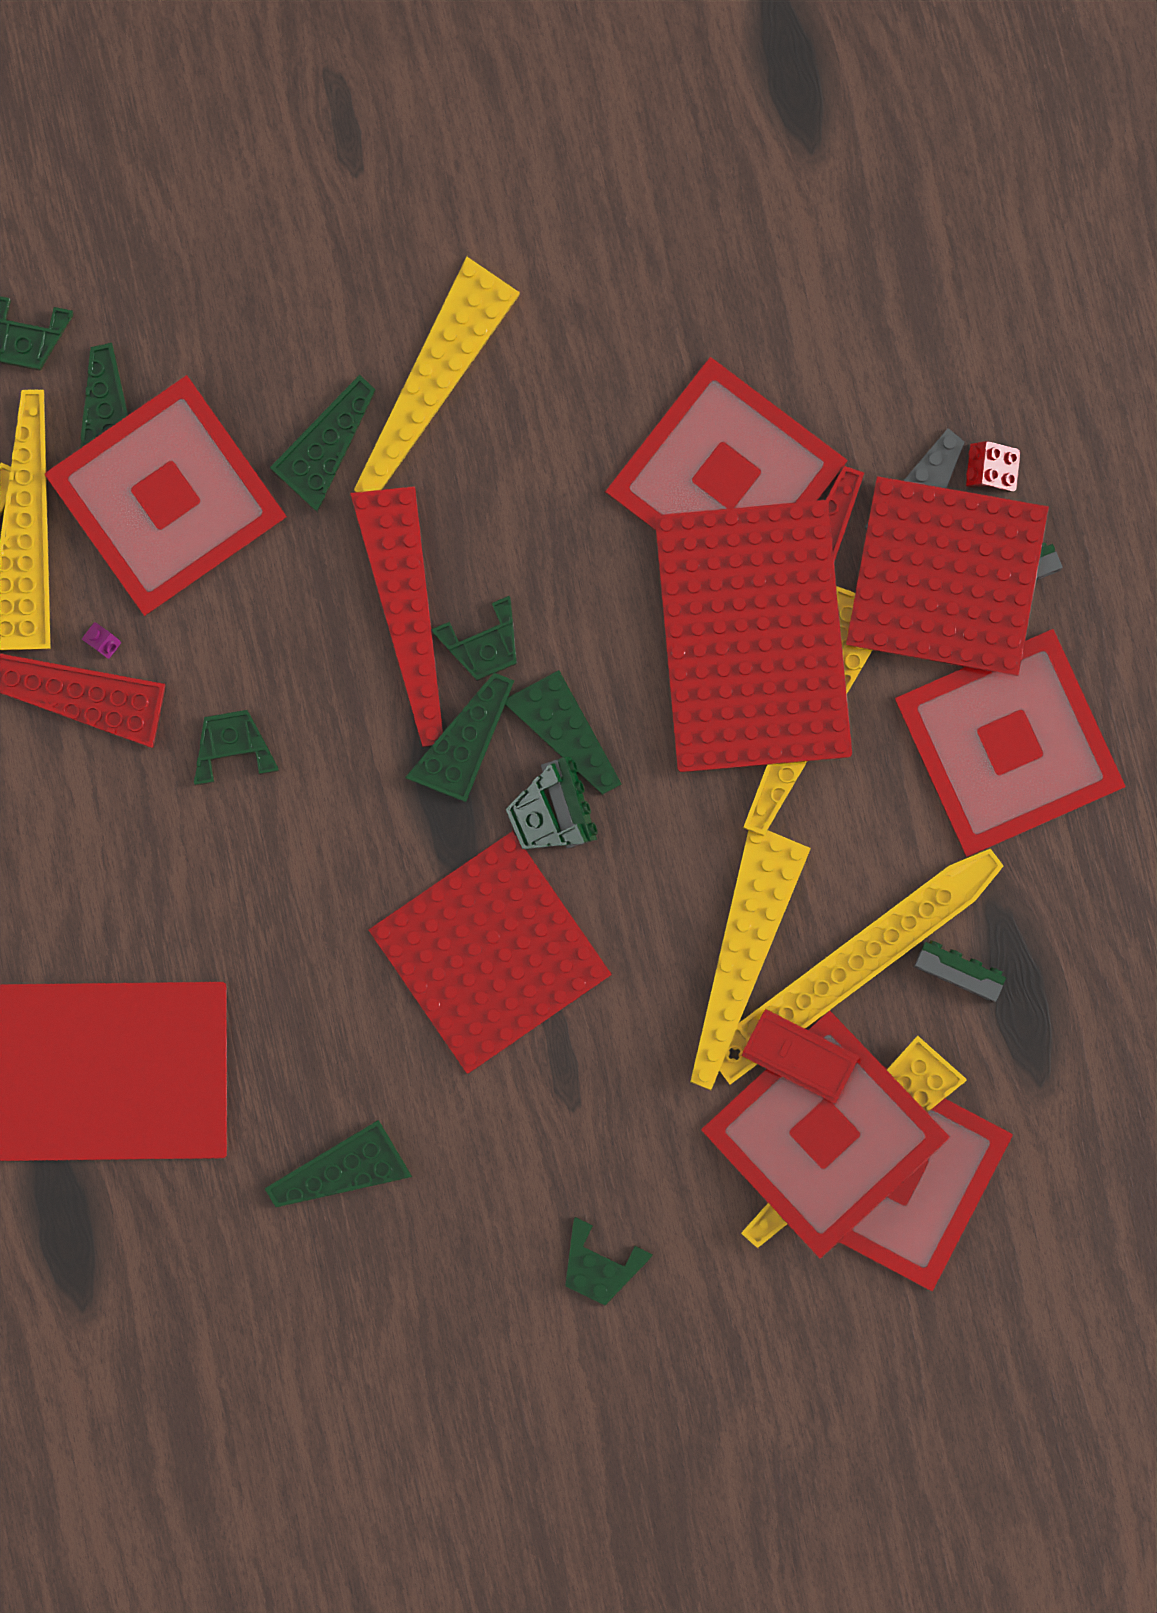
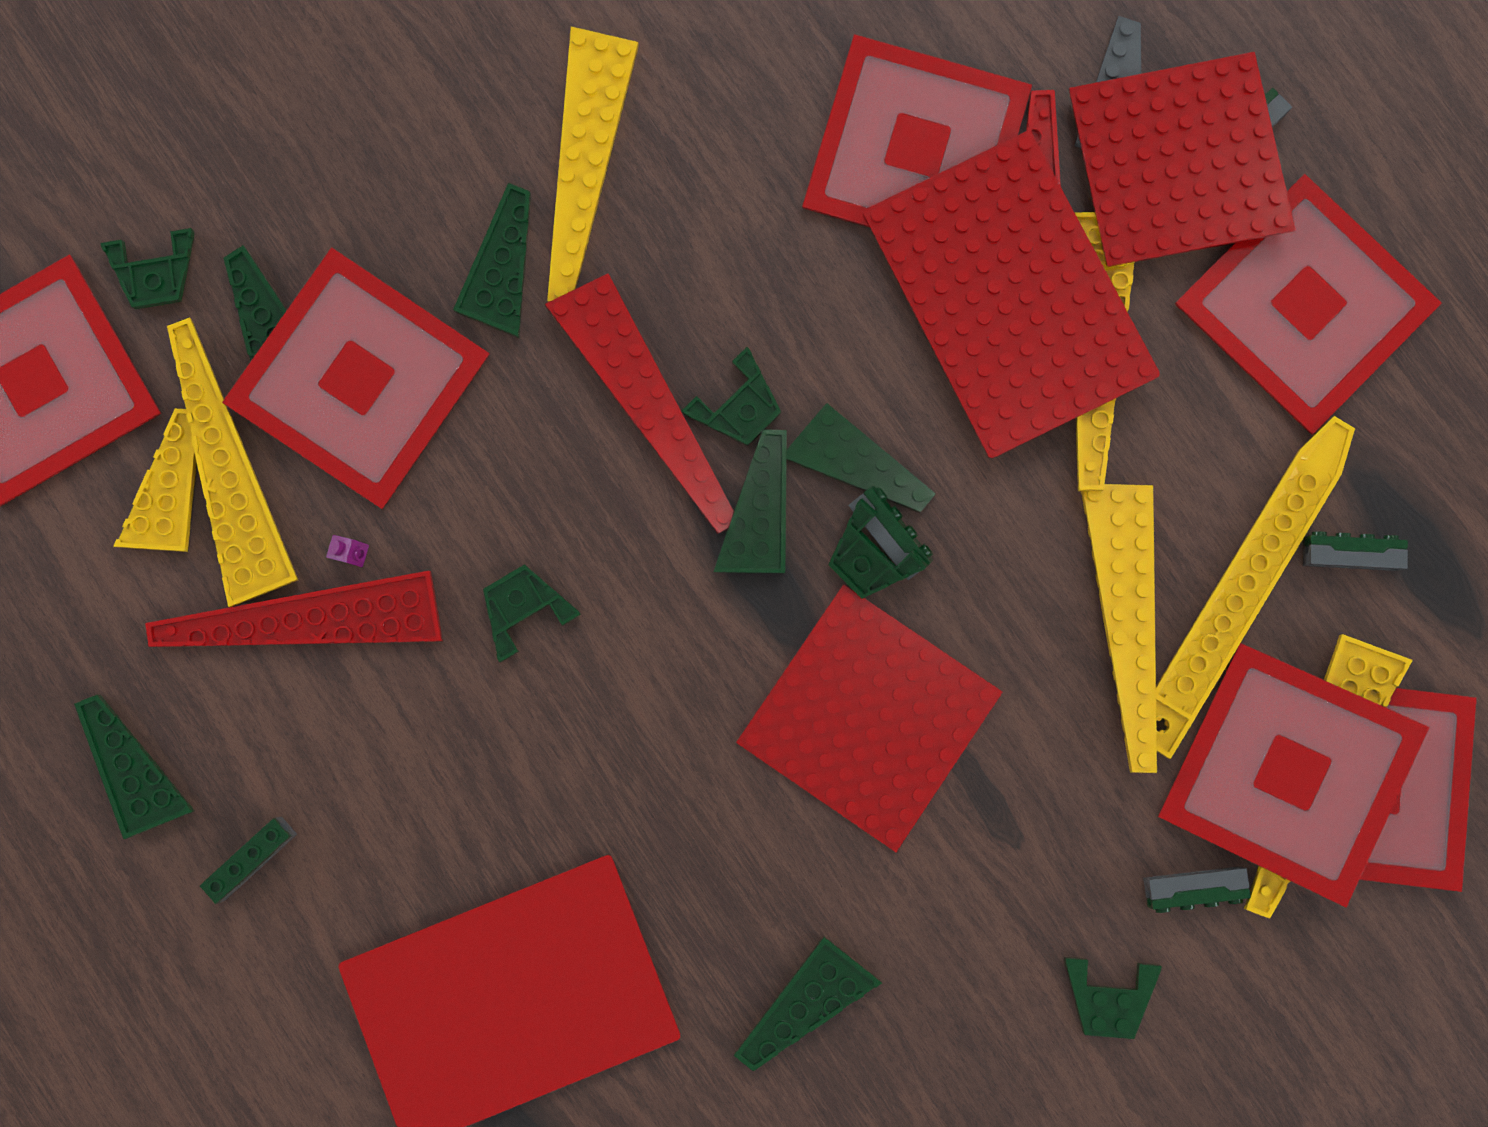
camera: 20 degrees left, 0 degrees up
(707, 1200) = (1196, 888): none -> piece
(800, 1056) = (1233, 702): red piece -> none
(993, 466) = (1177, 35): bracket -> none

